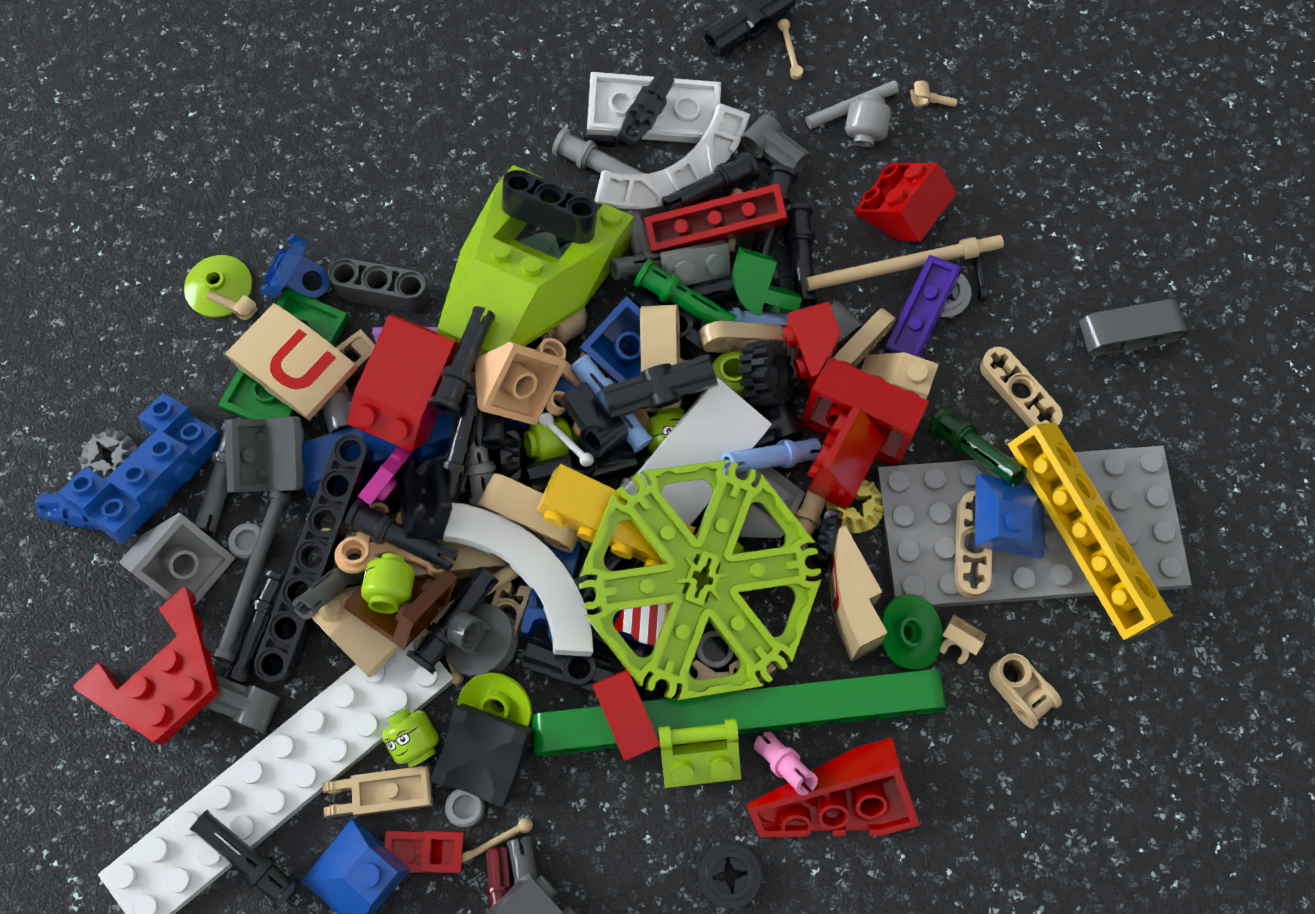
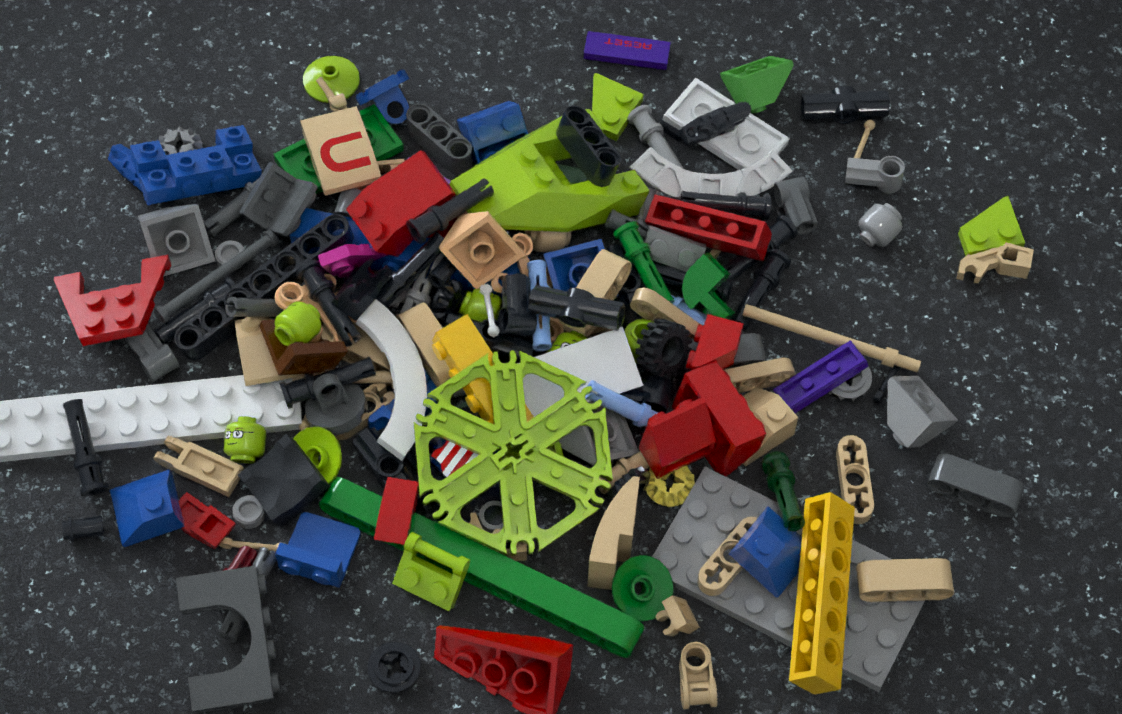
camera: 30 degrees right, 10 degrees down
(431, 245) = (492, 129): none -> blue slope
(499, 82) = (627, 50): none -> dark purple tile
(525, 145) = (613, 104): none -> lime wing
(567, 802) = (319, 549): none -> blue bracket
(651, 40) = (757, 81): none -> bright green slope
(785, 763) = (485, 614): bright pink pin -> none
(824, 70) = (876, 173): none -> light grey piece
(842, 108) = (863, 207): light grey bar -> none
(906, 200) = (867, 296): red slope -> none
(921, 96) = (938, 233): tan hand -> none
(969, 65) = (991, 229): none -> lime wing
(981, 105) = (993, 259): none -> tan piece
(1032, 289) = (915, 411): none -> light grey slope
(1147, 465) = (905, 580): none -> tan beam

